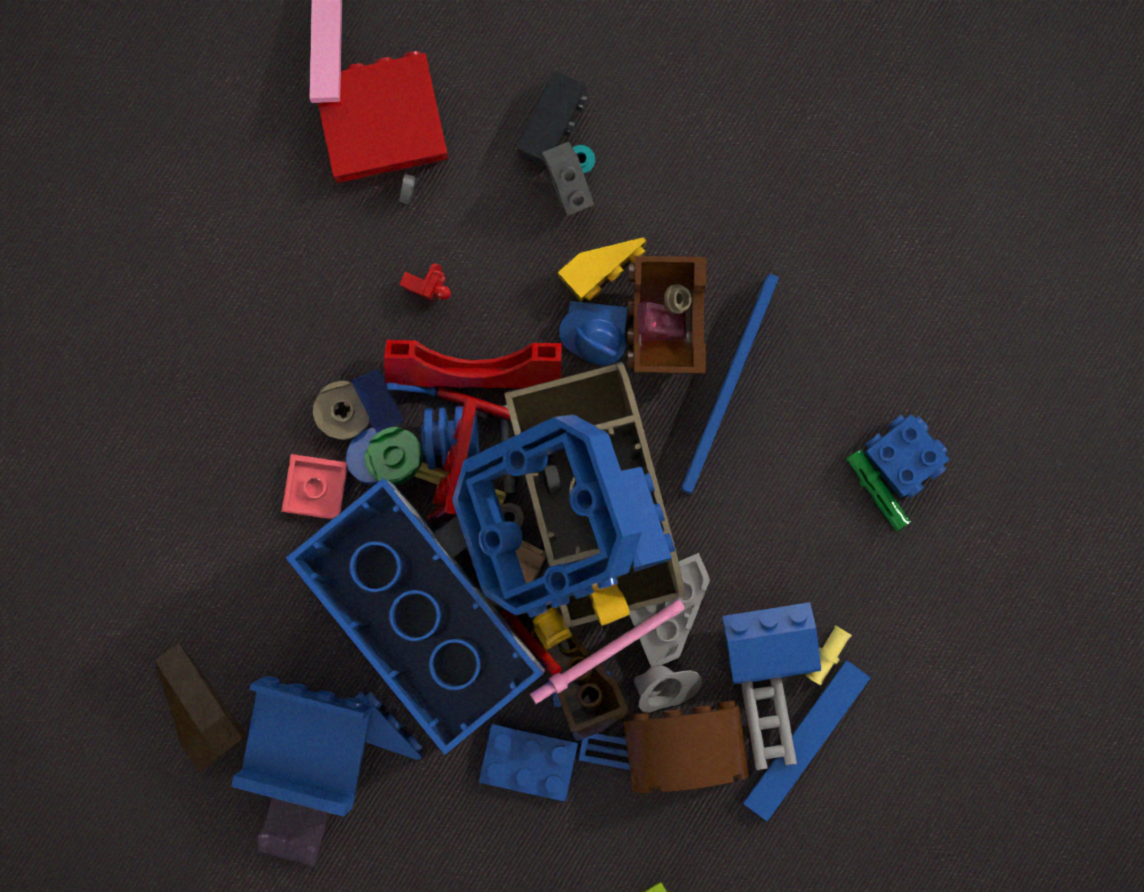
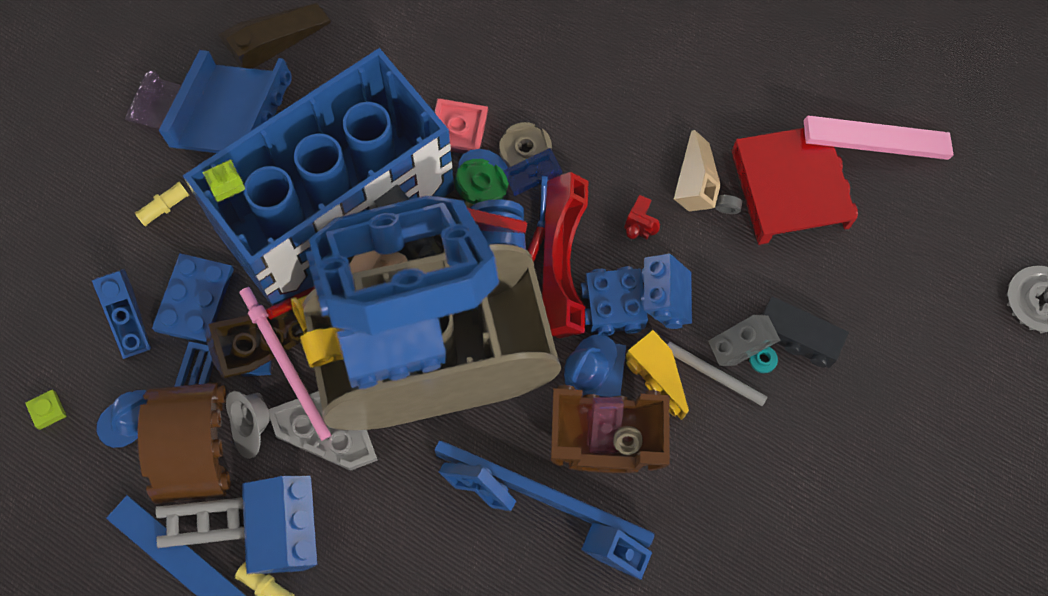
camera: 85 degrees right, 15 degrees down
(375, 219) = (698, 178): none -> tan slope
(420, 809) = (161, 204): none -> light yellow pin
(452, 709) = (224, 180): none -> lime tile
(516, 256) = (667, 291): none -> blue brick
(522, 312) = (614, 301): none -> blue brick
(547, 835) = (122, 312): none -> blue slope
(596, 209) = (717, 374): none -> light grey bar
(662, 817) = (119, 422): none -> blue piece
(722, 447) = (478, 479): none -> blue plate
(782, 312) = (616, 550): none -> blue slope

